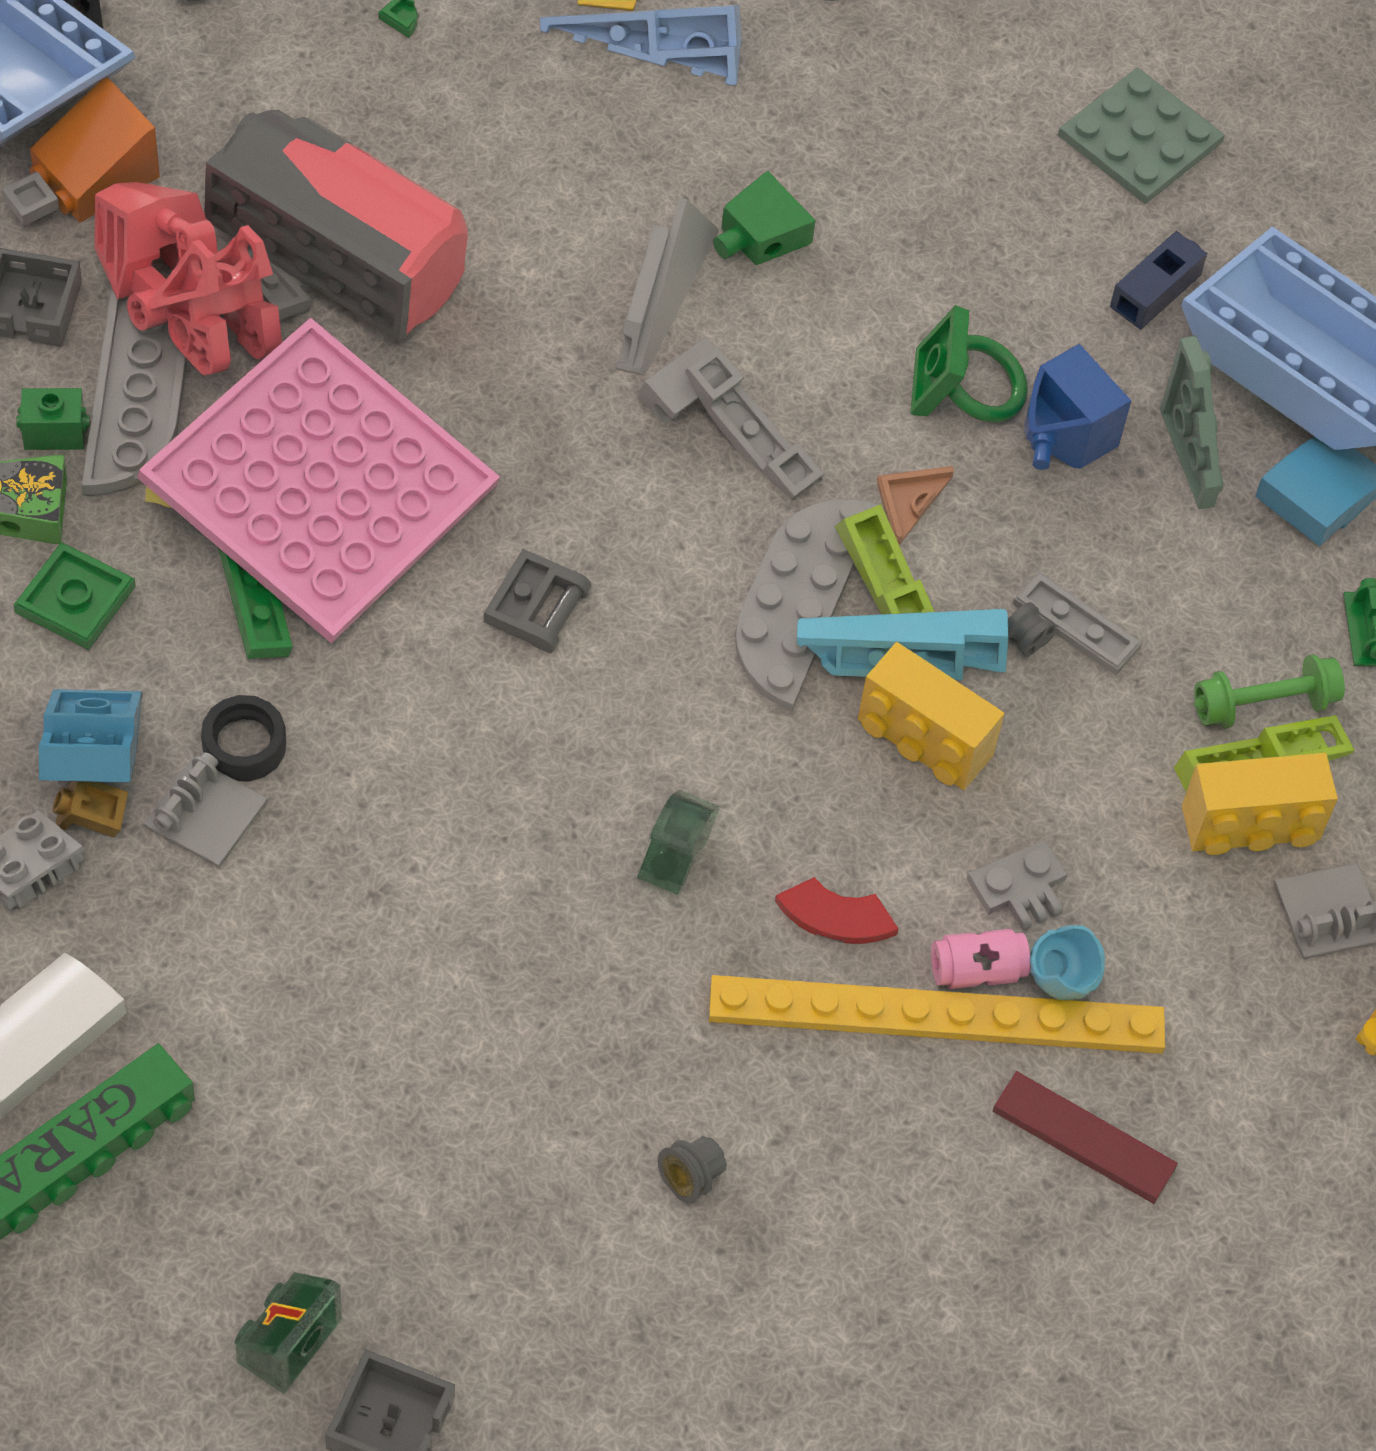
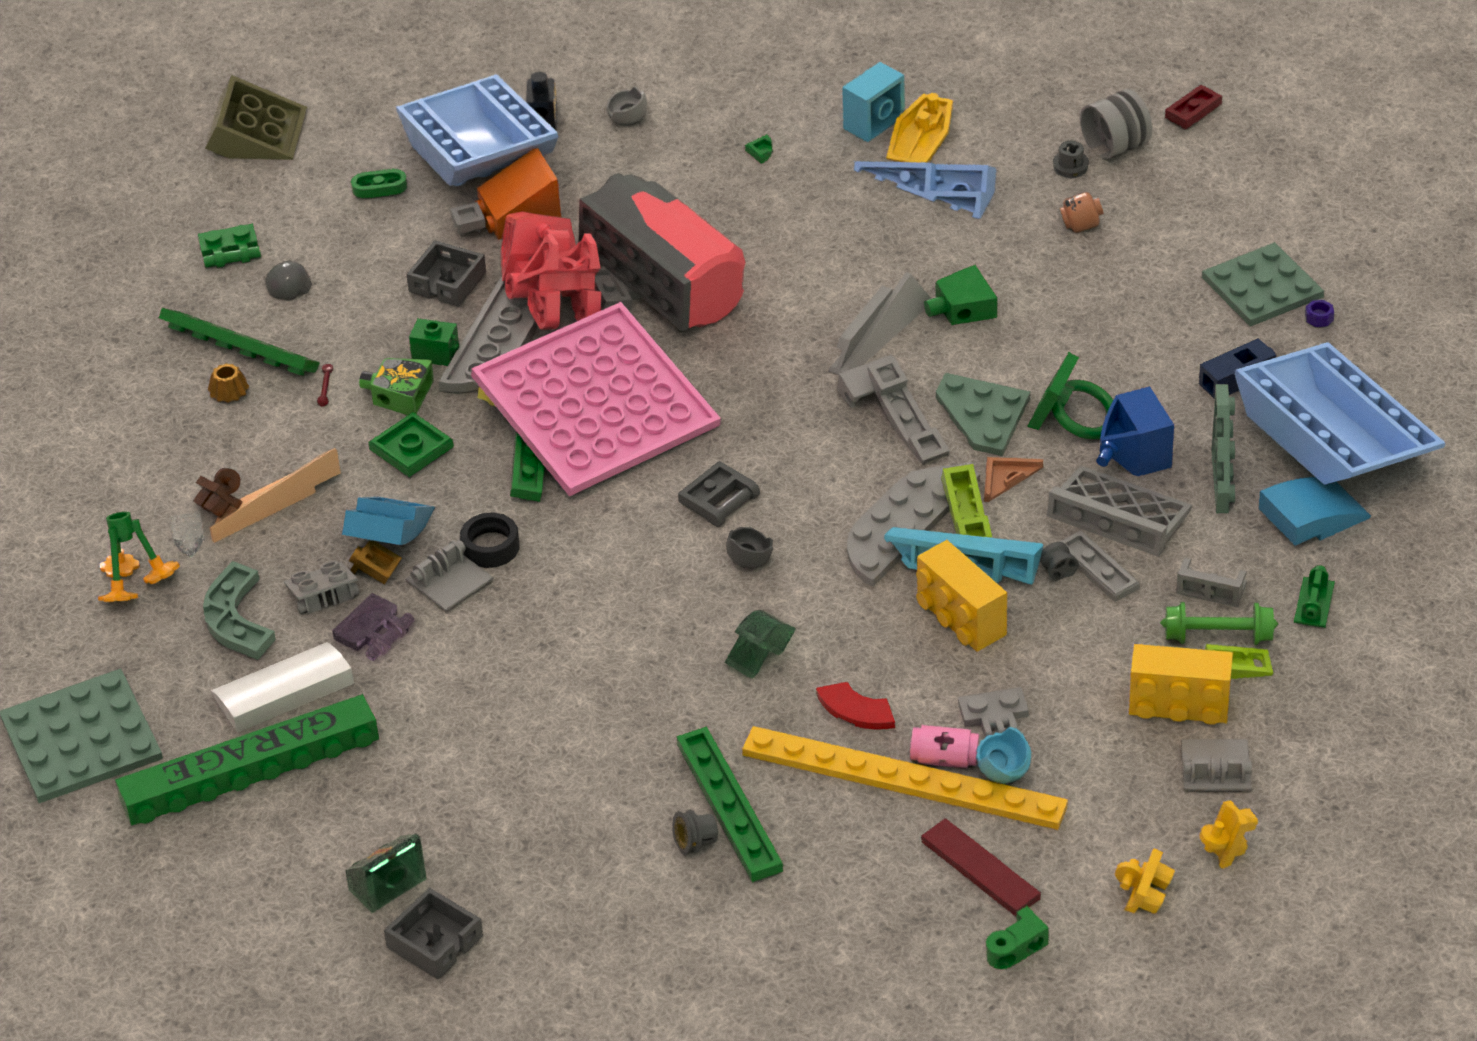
camera: 25 degrees right, 15 degrees down
(111, 912) = (367, 620): none -> clear purple plate
(597, 679) = (748, 547): none -> dark grey hair
(722, 1109) = (729, 804): none -> green plate
(845, 399) = (982, 410): none -> sand green plate
(874, 58) = (1081, 212): none -> nougat head
(1069, 549) = (1119, 523): none -> light grey fence
(1167, 1259) = (1017, 941): none -> green leg
(1230, 171) = (1319, 313): none -> dark purple tile
(1234, 629) = (1210, 586): none -> light grey hinge
(1302, 1116) = (1141, 878): none -> yellow hips

